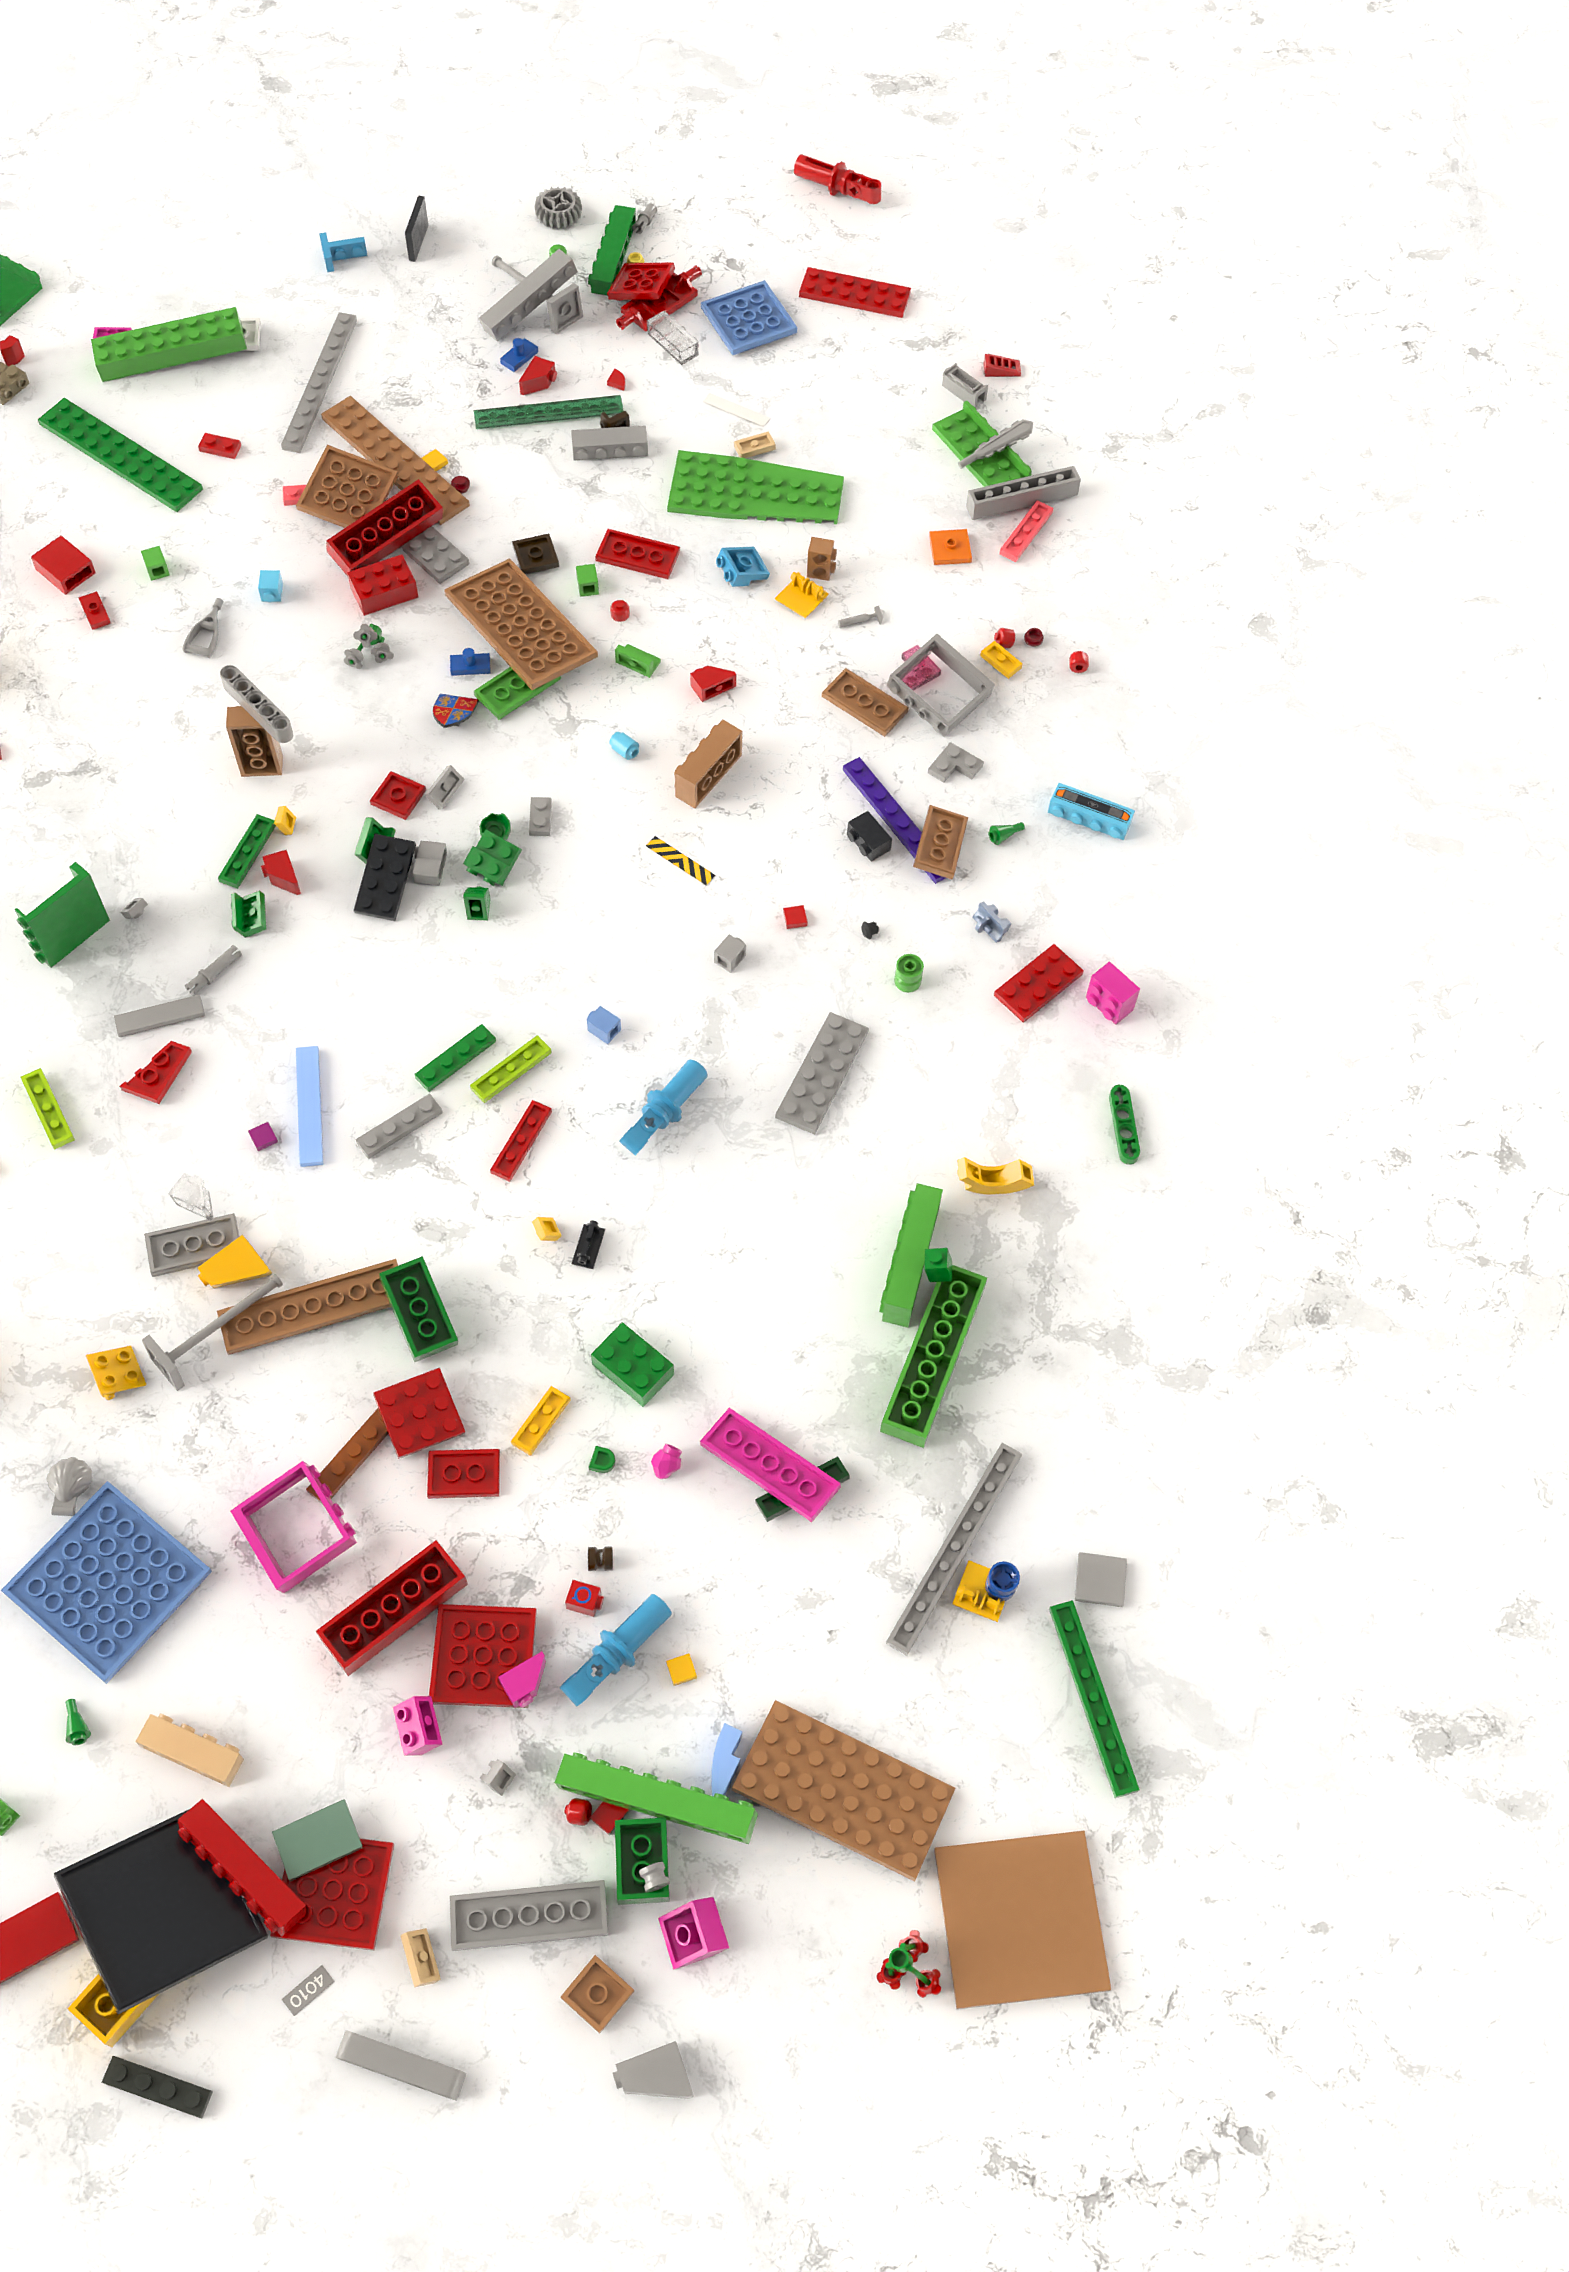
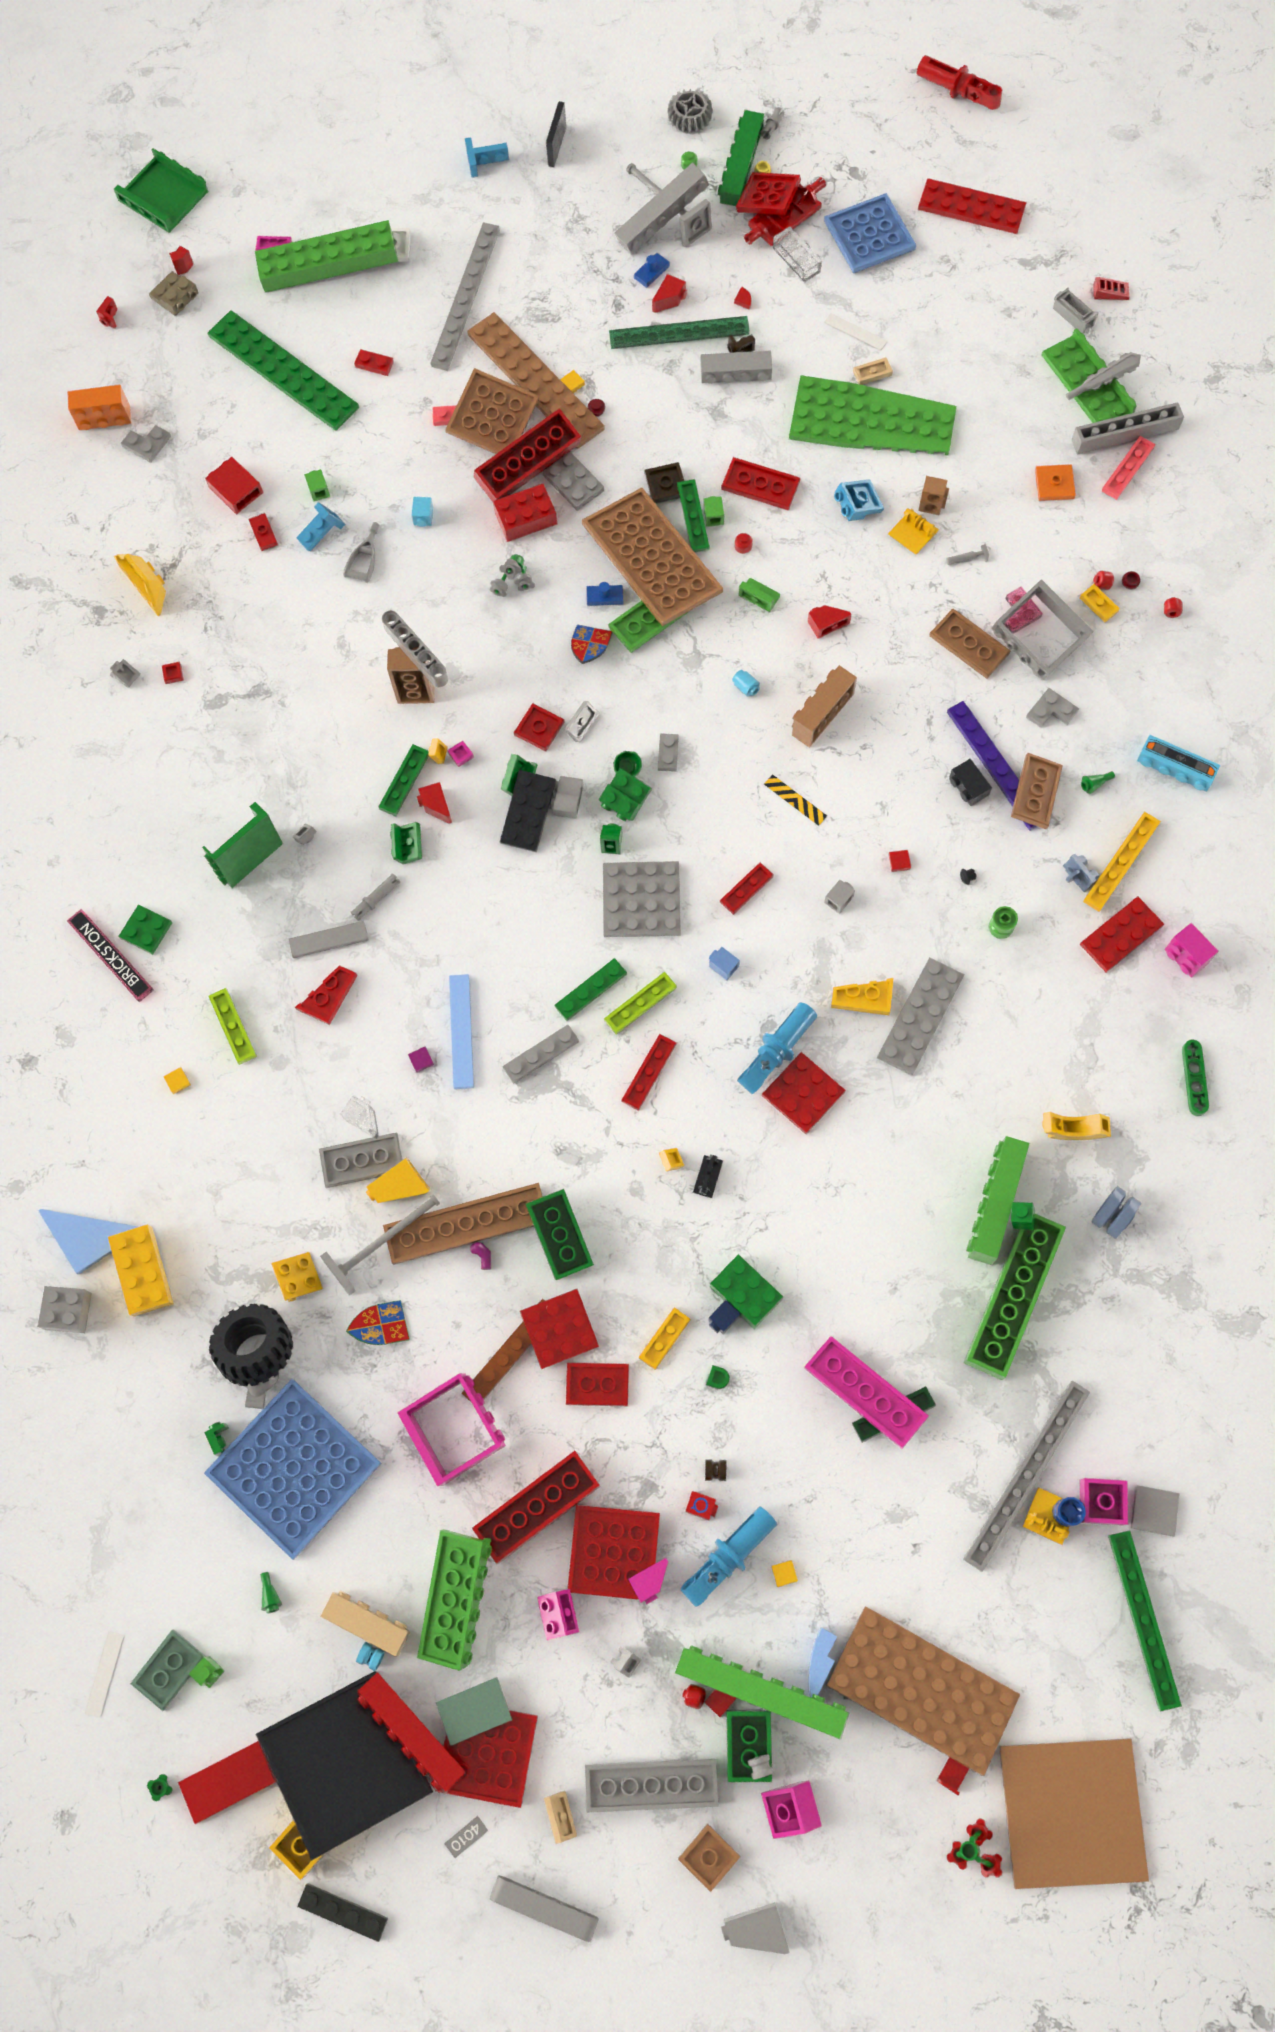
camera: 10 degrees right, 10 degrees up
(15, 1550) = (216, 1442): none -> green bracket
(69, 1459) = (239, 1327): none -> black tyre
(156, 602) = (319, 526): none -> dark azure bracket
(194, 1786) = (370, 1656): none -> medium azure wheel
(212, 1418) = (380, 1324): none -> shield
(294, 1713) = (454, 1600): none -> bright green bracket
(310, 823) = (460, 753): none -> dark pink plate
(330, 1334) = (484, 1253): none -> magenta arm
(511, 964) = (641, 899): none -> light grey plate
(565, 583) = (693, 515): none -> green plate
(607, 1393) = (723, 1317): none -> dark blue brick
(628, 949) = (746, 888): none -> red tile
(666, 1461) = (774, 1383): dark pink rock -> none
(694, 1155) = (803, 1093): none -> red plate
(763, 1055) = (867, 998): none -> yellow wing
(880, 1883) = (952, 1775): none -> red bracket
(1035, 910) = (1121, 861): none -> yellow plate
(1042, 1569) = (1104, 1501): none -> dark pink brick
(1043, 1261) = (1119, 1214): none -> sand blue wheel

